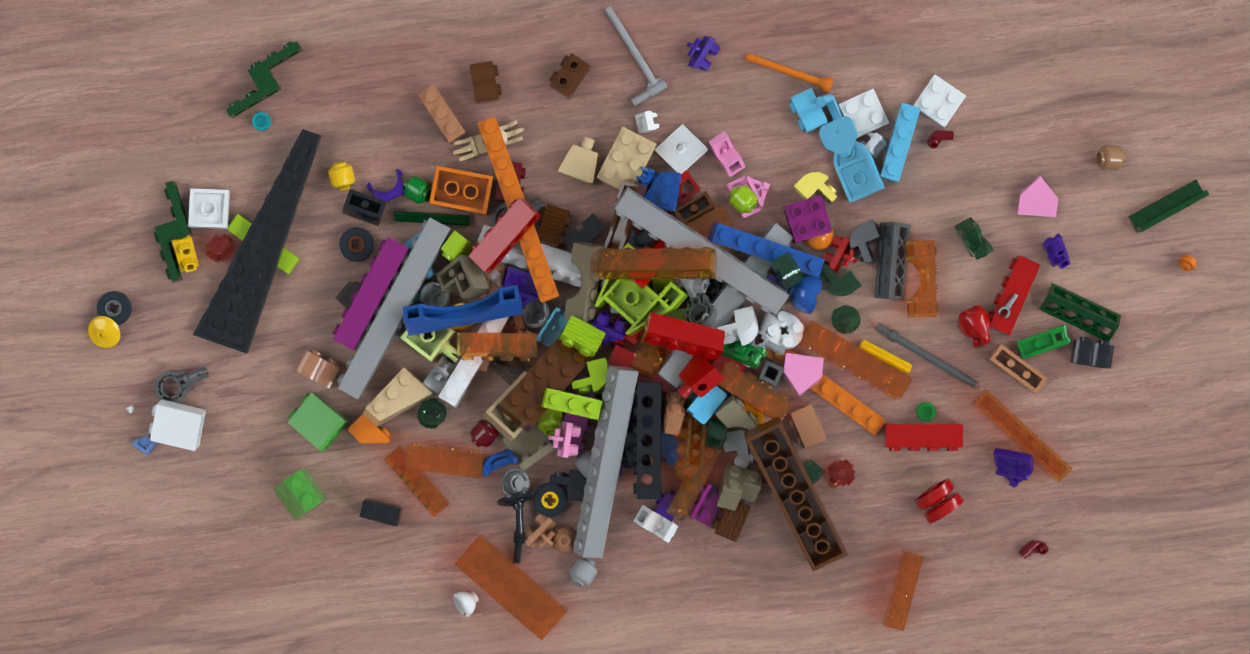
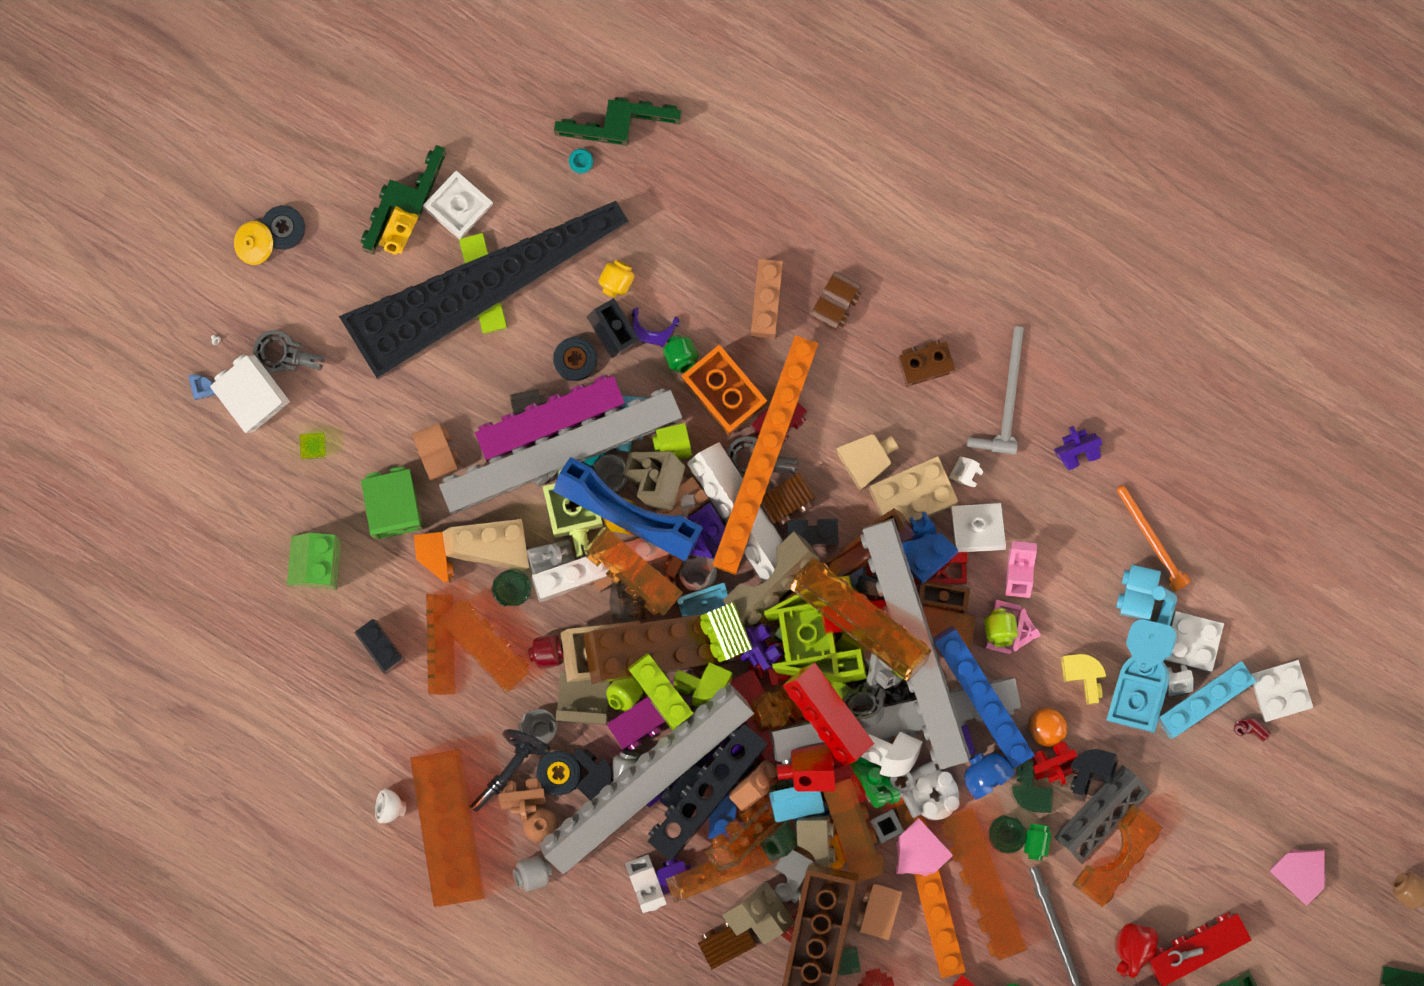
camera: 45 degrees right, 5 degrees down
(219, 248) = (436, 252): clear red head -> none
(242, 425) = (312, 446): none -> clear neon green plate
(419, 217) = (682, 402): dark green axle -> none
(476, 142) = (776, 359): tan piece -> none
(488, 467) = (524, 689): blue helmet -> none
(504, 235) = (730, 467): brick -> none
(563, 437) = (621, 720): bright pink hips -> none
(706, 506) = (708, 910): magenta bracket -> none
(787, 271) = (986, 734): clear green brick -> none
(807, 219) = (1050, 700): magenta bracket -> none
(867, 309) = (1037, 842): none -> green brick
(886, 356) = (1017, 906): yellow axle -> none
(973, 239) = (1203, 858): clear green brick -> none
(1056, 251) = (1278, 941): dark purple hips -> none

